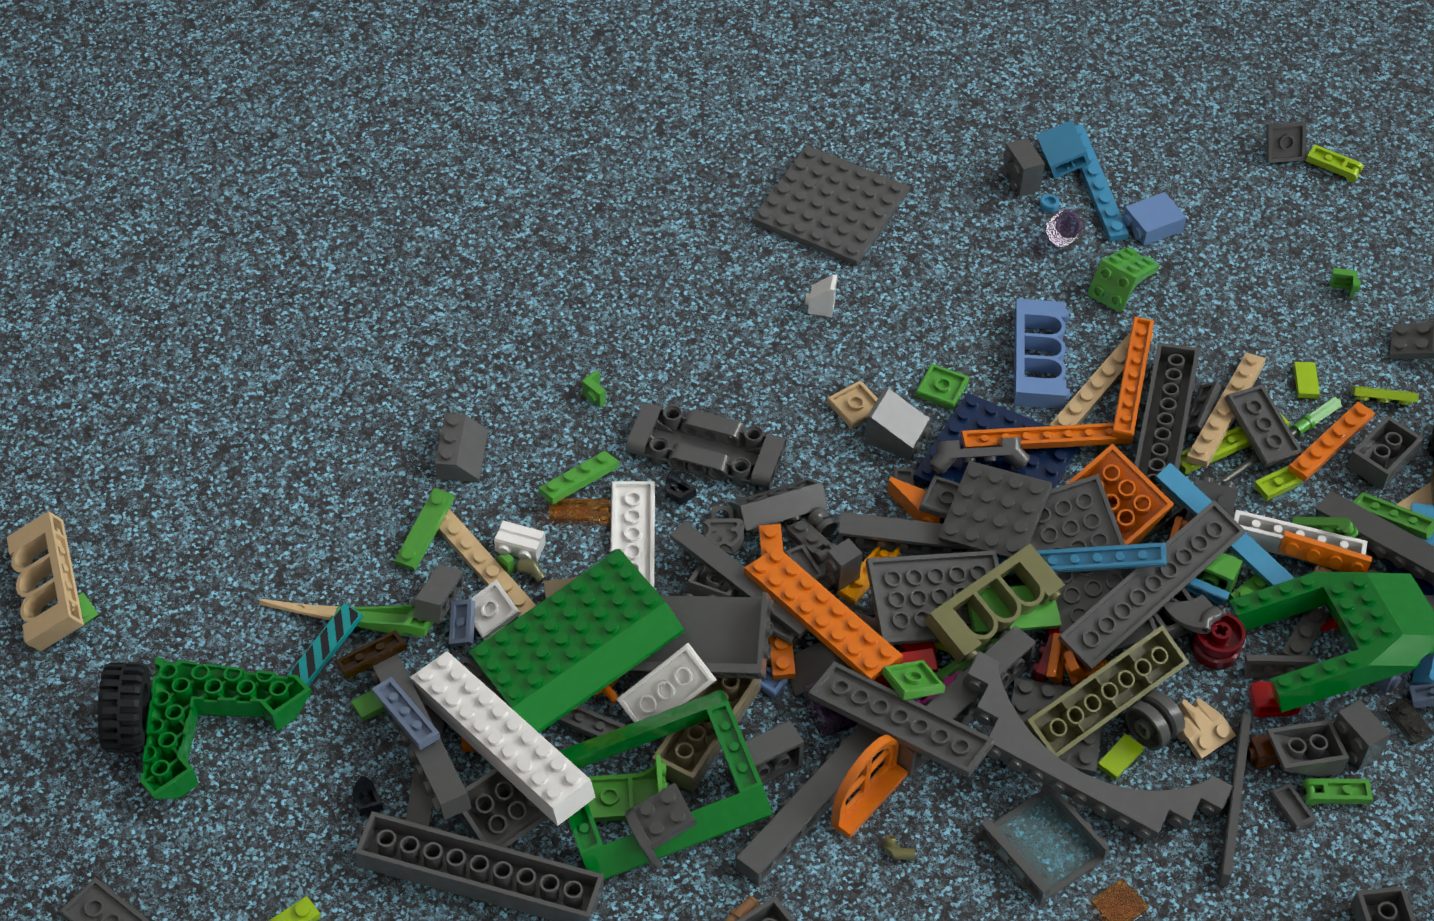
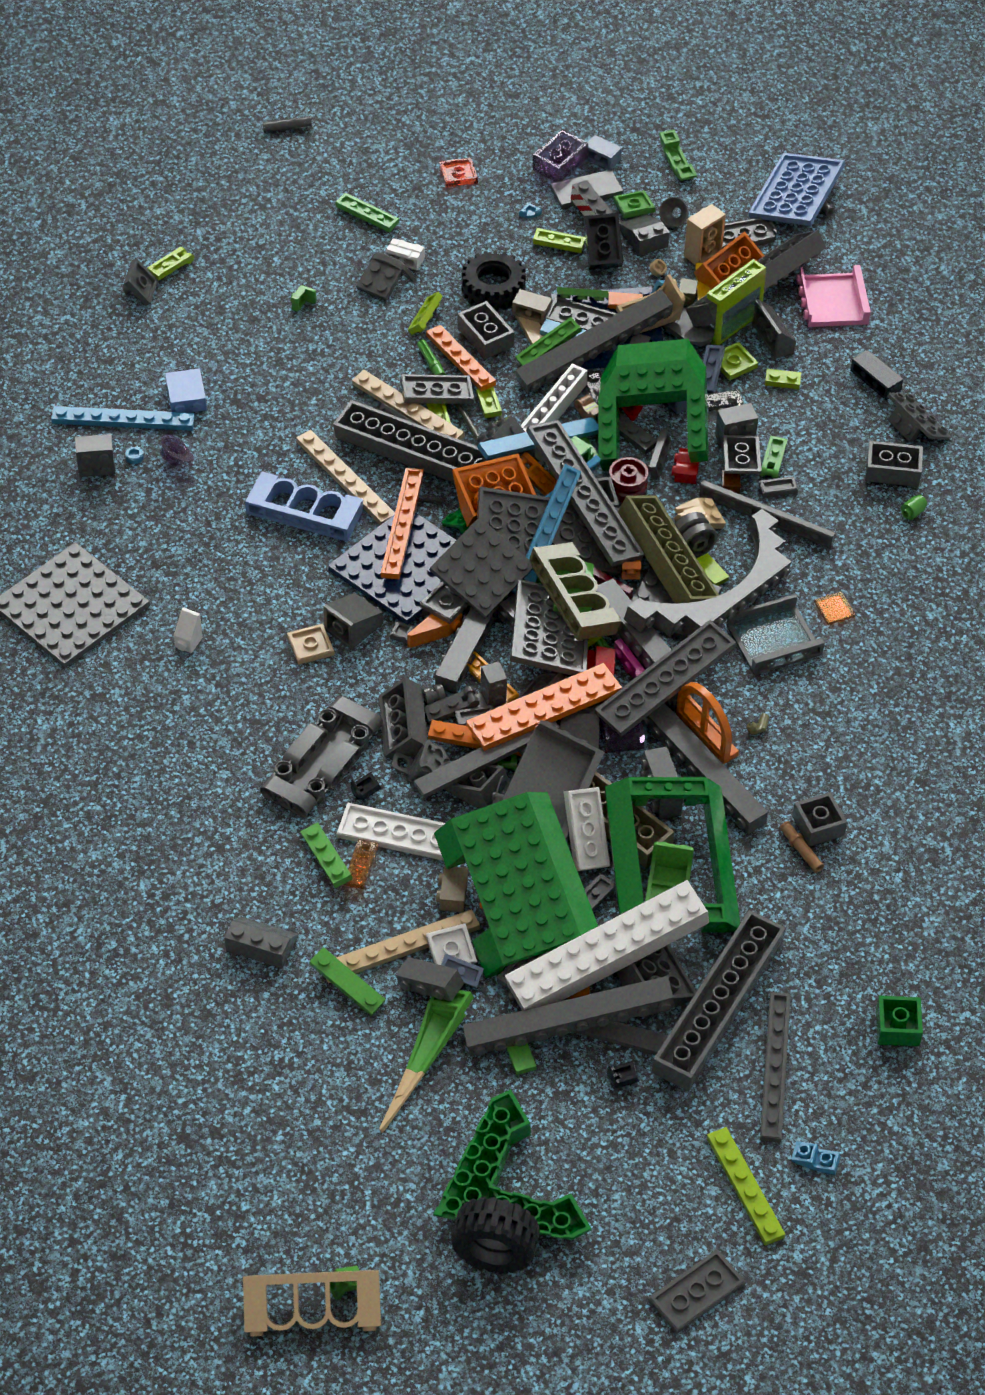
camera: 75 degrees left, 0 degrees up
(326, 644) = (454, 1079): teal tile -> none
(370, 654) = (484, 1038): dark brown tile -> none
(406, 713) = (567, 1012): sand blue plate -> none
(506, 562) = (403, 927): bright green tile -> none
(519, 541) = (383, 913): white brick -> none
(530, 567) = (413, 911): olive arm -> none
(592, 390) = (228, 825): bright green bracket -> none
(659, 821) = (714, 857): dark grey piece -> none
(913, 680) = (631, 661): bright green tile -> none
(942, 386) = (312, 581): bright green tile -> none
(1007, 448) = (405, 581): dark grey plate -> none
(1056, 661) = (607, 569): orange tile -> none
(1063, 149) = (81, 421): dark azure brick -> none
(1119, 276) = (247, 427): bright green bracket -> none
(1132, 378) = (360, 451): orange tile -> none
(1195, 614) = (613, 478): dark grey arm -> none
(1306, 380) = (391, 354): lime tile -> none
(1323, 553) = (575, 392): orange plate -> none
(1336, 525) = (548, 383): bright green plate -> none

